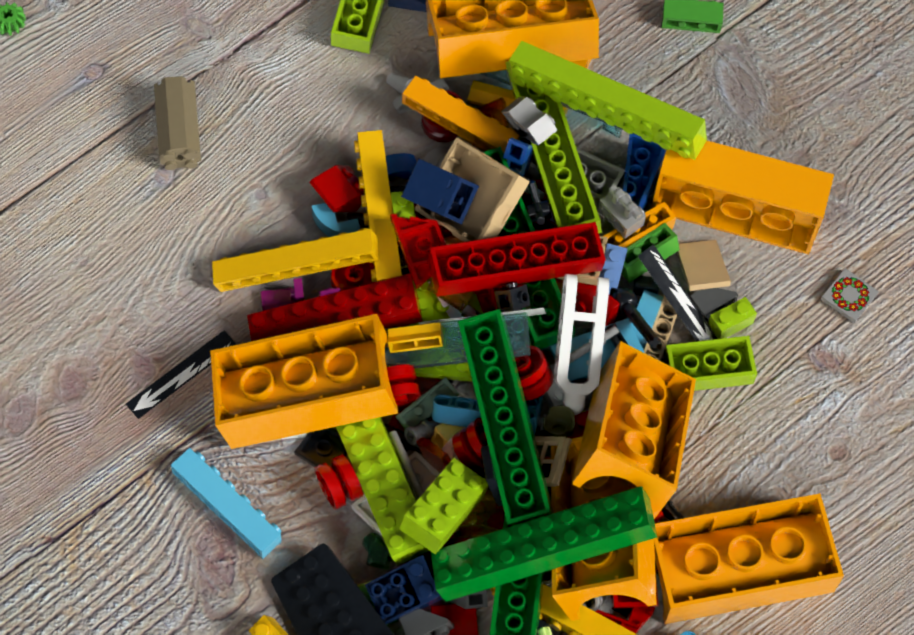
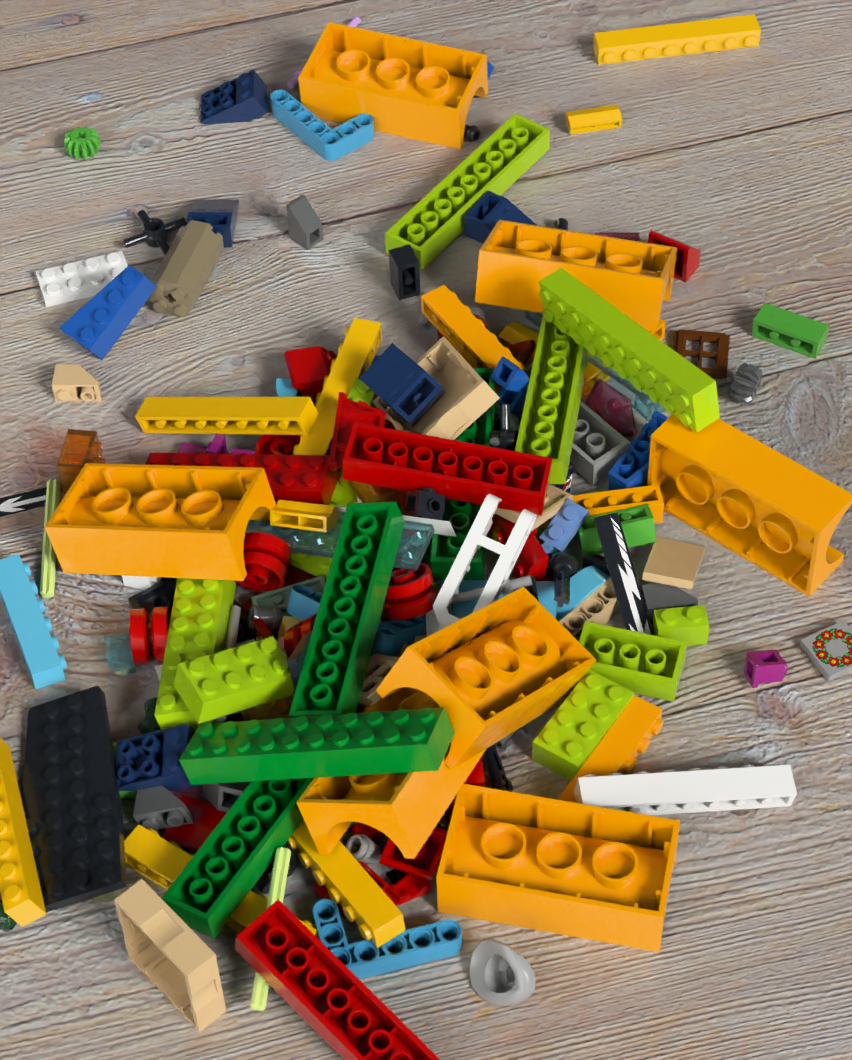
camera: 30 degrees right, 15 degrees down
(87, 158) = (79, 278): none -> white plate
(125, 98) = (154, 232): none -> black bar
(139, 192) = (109, 312): none -> blue wedge
(141, 267) = (74, 384): none -> tan slope
(169, 59) = (219, 214): none -> dark blue slope
(194, 345) = (78, 449): none -> clear orange brick
(200, 420) = (48, 564): none -> yellowish green axle
(252, 42) = (303, 223): none -> dark grey slope
(318, 505) = (120, 654): none -> clear light blue brick
(363, 64) = (404, 272): none -> black brick
(527, 117) = (537, 348): light grey brick -> none
(591, 139) = (612, 407): none -> clear pink slope
(622, 211) = (601, 474): light grey brick -> none
(648, 56) = (720, 356): none -> reddish brown piece
(683, 80) = (745, 383): none -> dark grey gear
(705, 433) = (580, 724): none -> lime brick
(733, 453) = (621, 743): none -> light orange brick
(801, 461) = (690, 790): none -> white brick
(807, 331) = (764, 667): none -> magenta brick

